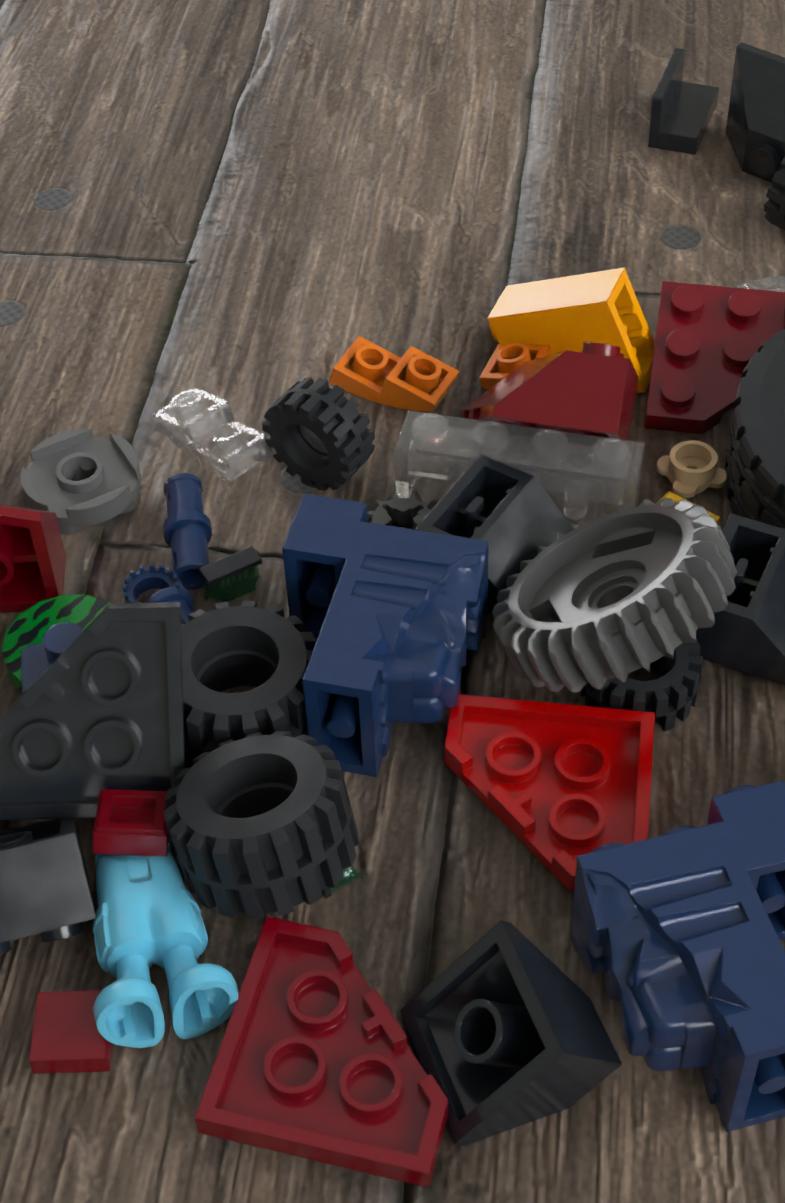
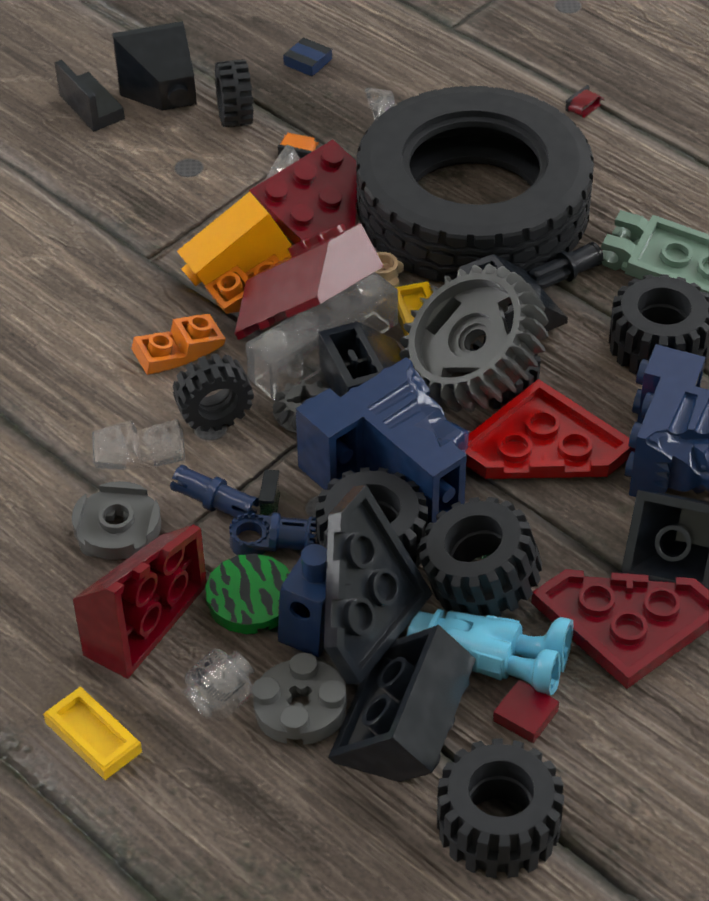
camera: 55 degrees left, 0 degrees up
(130, 823) = (432, 608): dark red tile -> none

